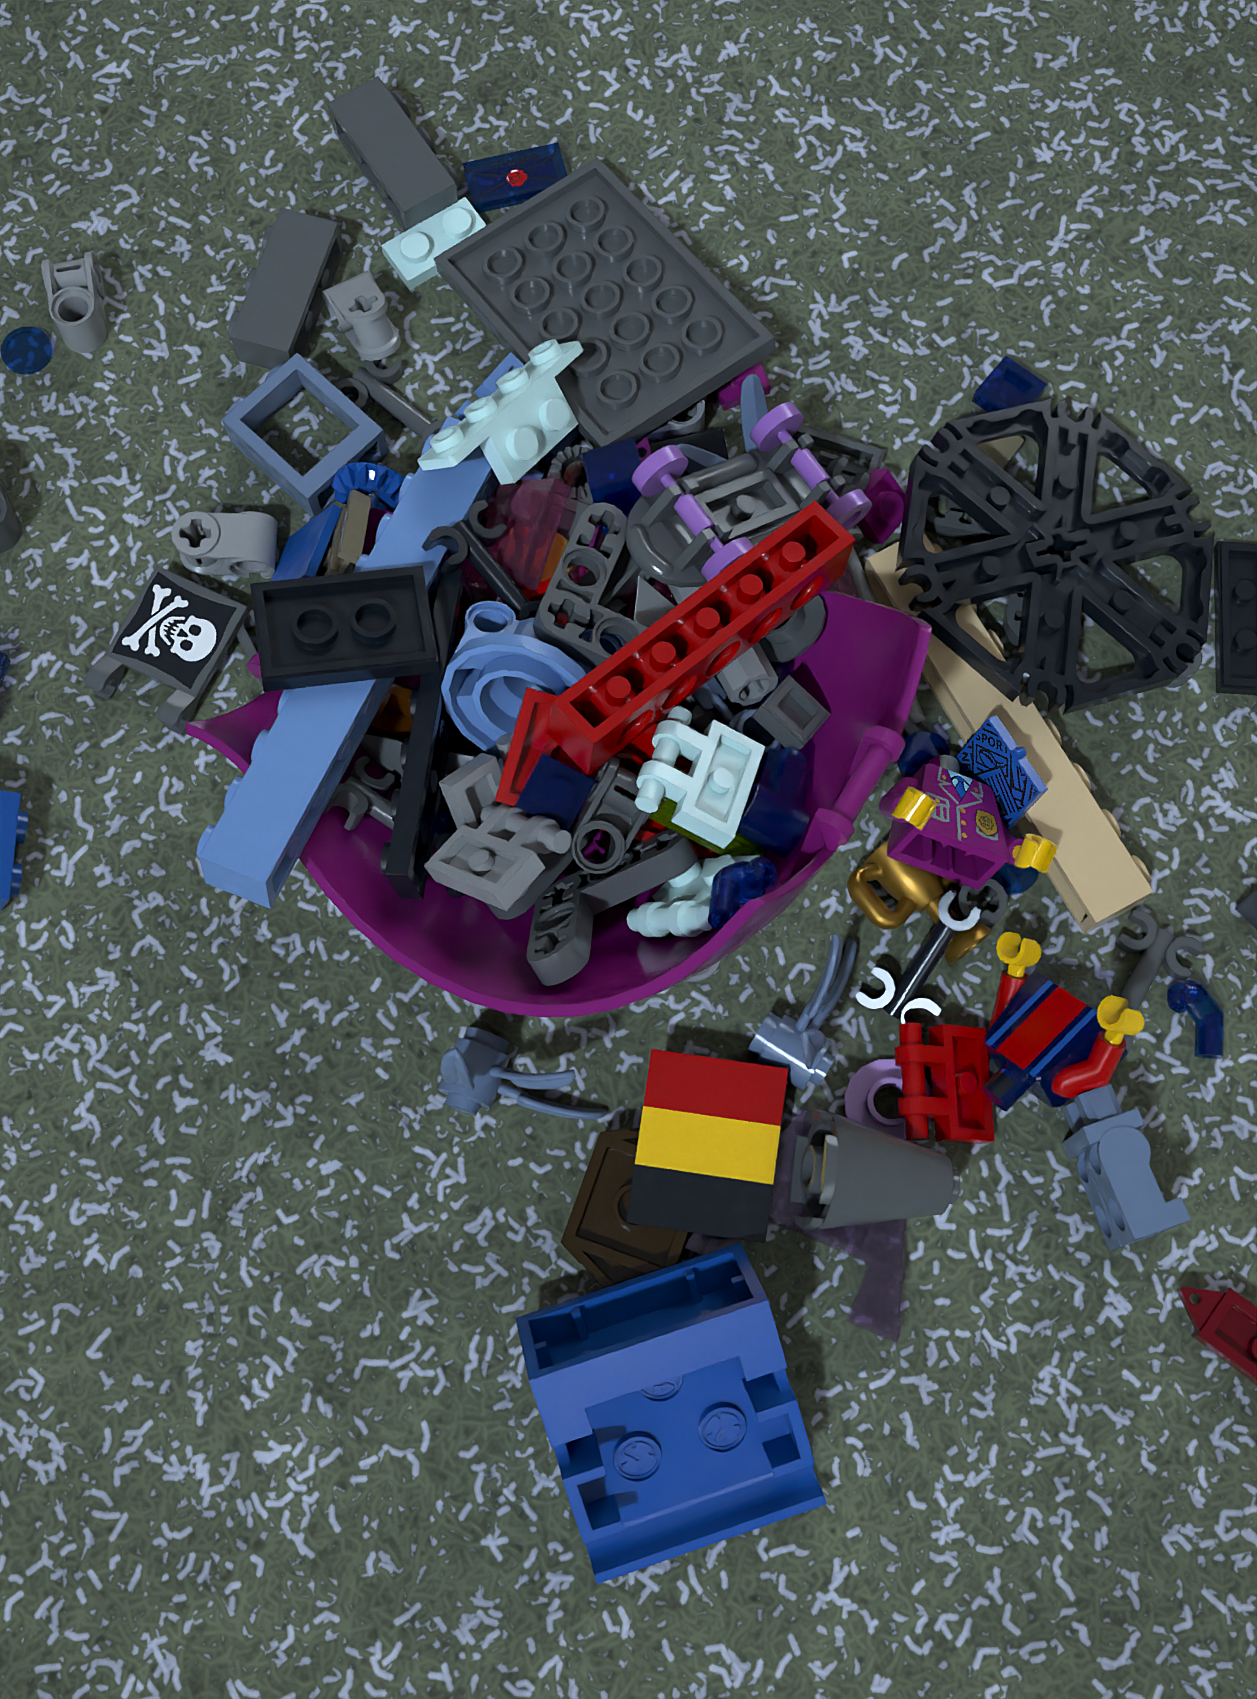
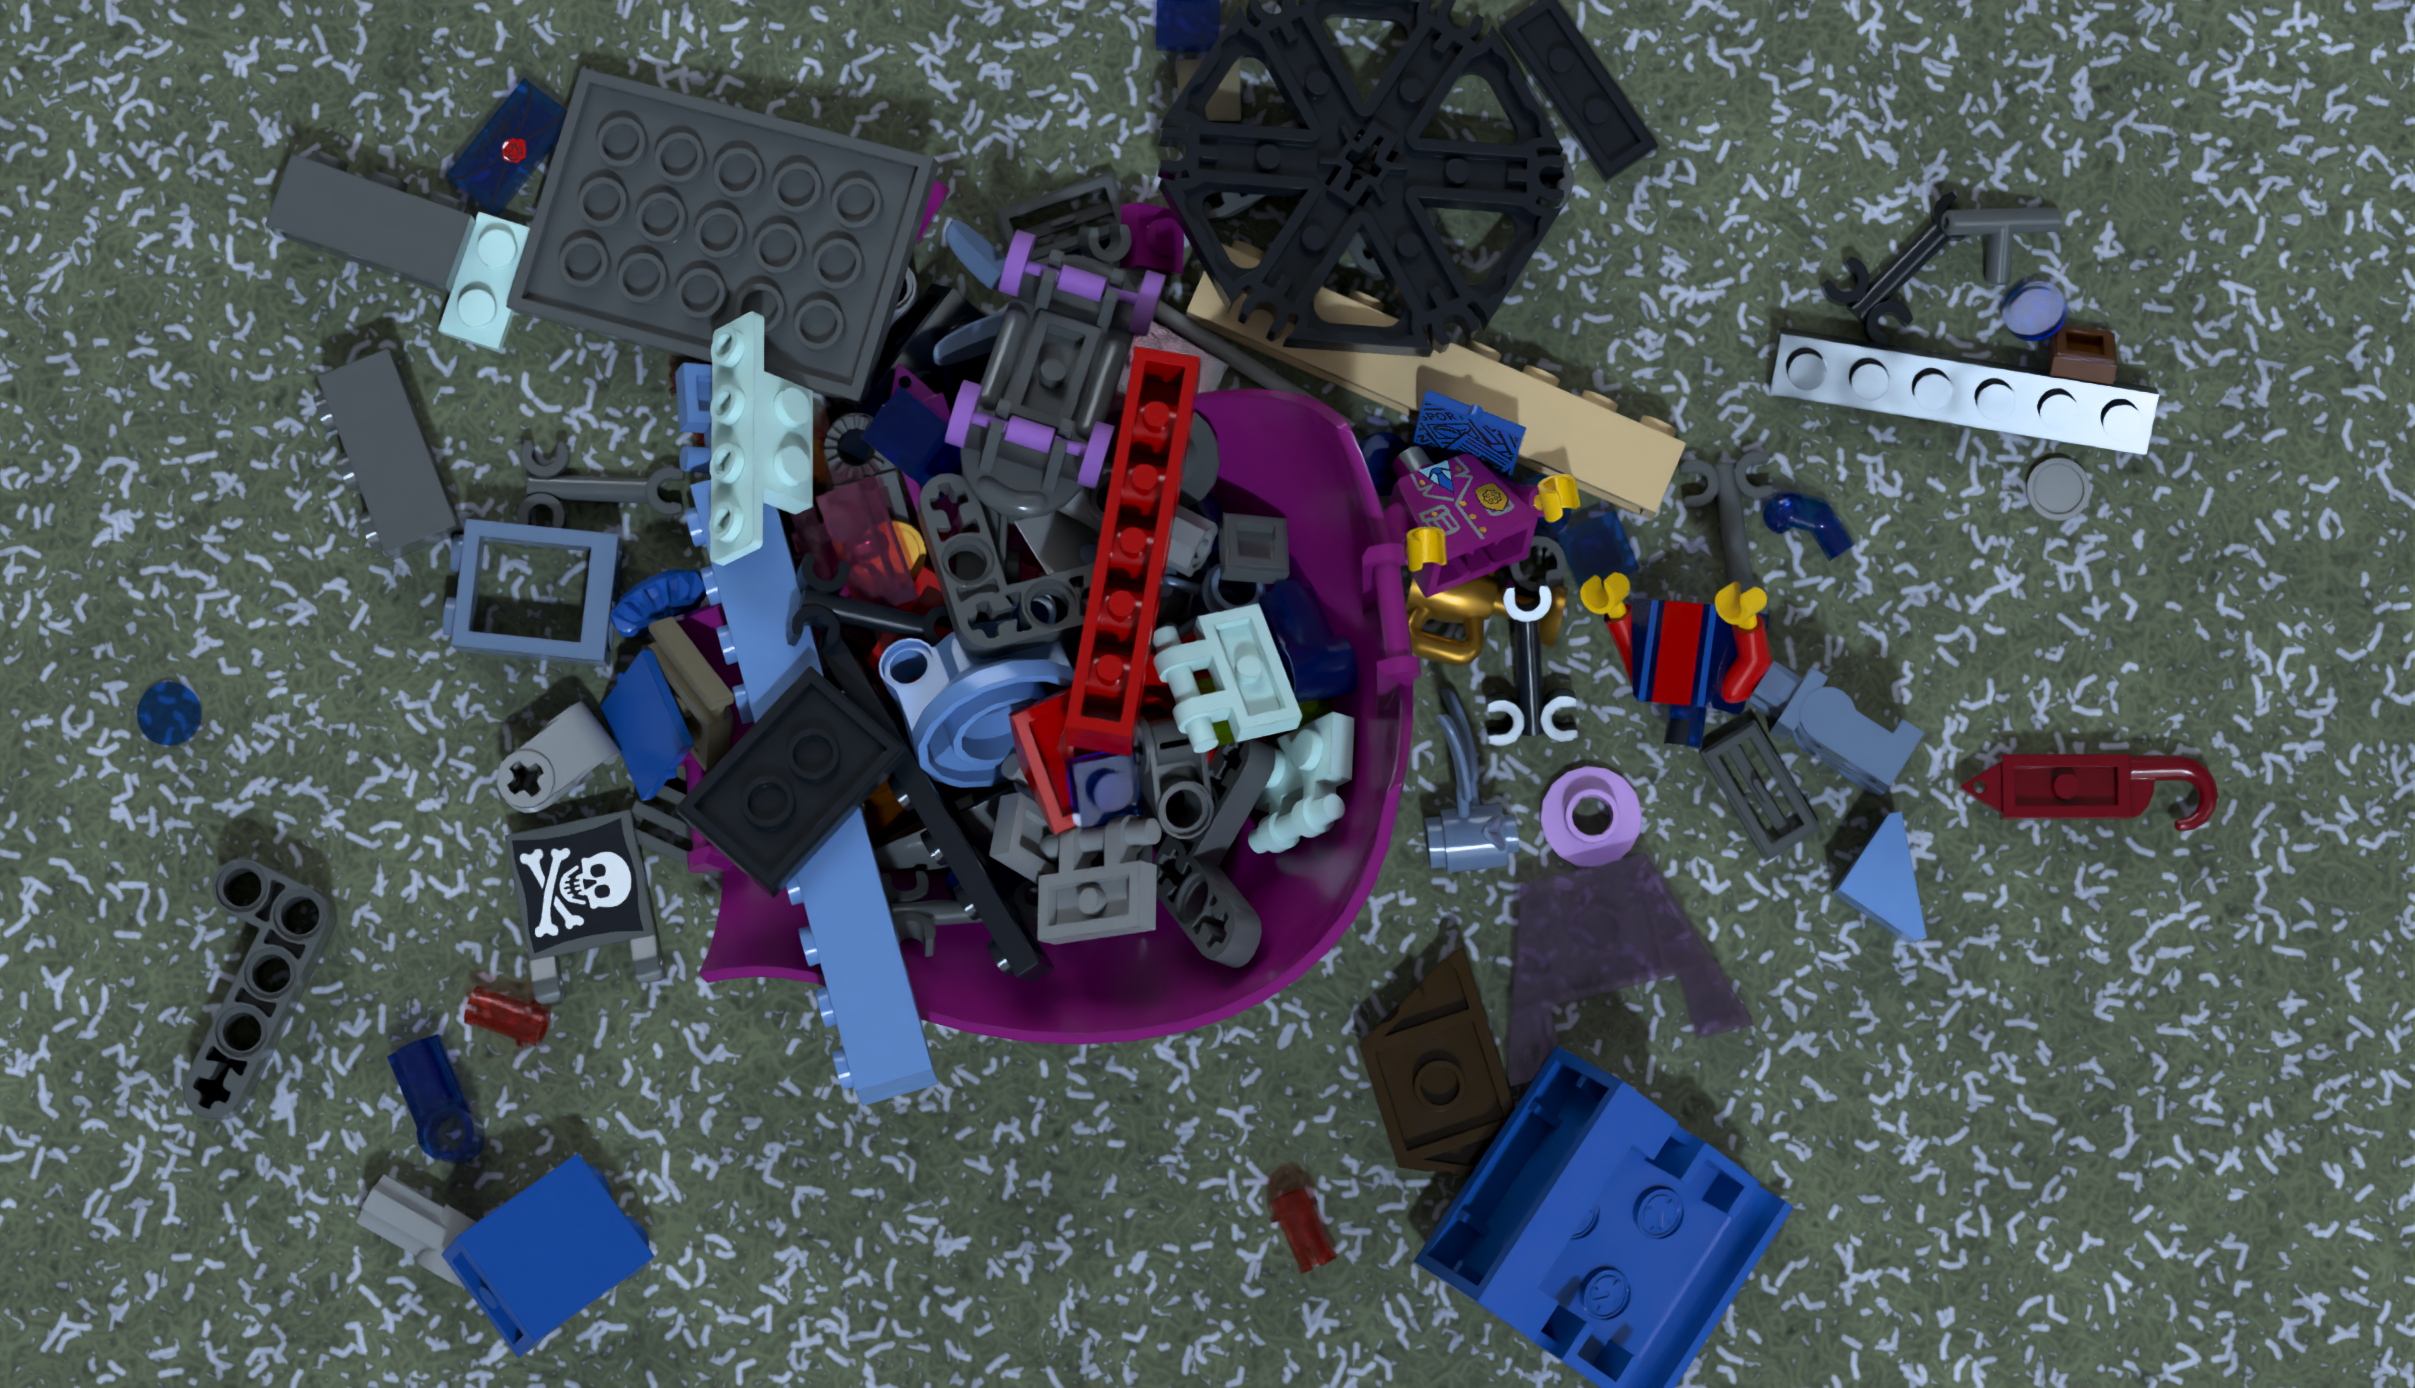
camera: 40 degrees left, 10 degrees up
(61, 680) = (508, 1016): none -> clear red pin
(76, 301) = (173, 618): light grey piece -> none
(363, 316) = (490, 424): light grey piece -> none
(458, 1234) = (1302, 1229): none -> clear red pin
(474, 1076) = (1205, 1075): sand blue plant -> none
(707, 1146) = (1462, 982): sticker -> none
(736, 886) = (1339, 760): clear blue arm -> none
(865, 1176) = (1621, 905): dark grey cone -> none
(957, 1074) = (1634, 746): red plate -> none
(1003, 1173) = (1787, 837): none -> dark grey tile
(1033, 920) = (1597, 549): none -> clear blue tile
(1072, 1314) = (1884, 881): none -> medium blue slope

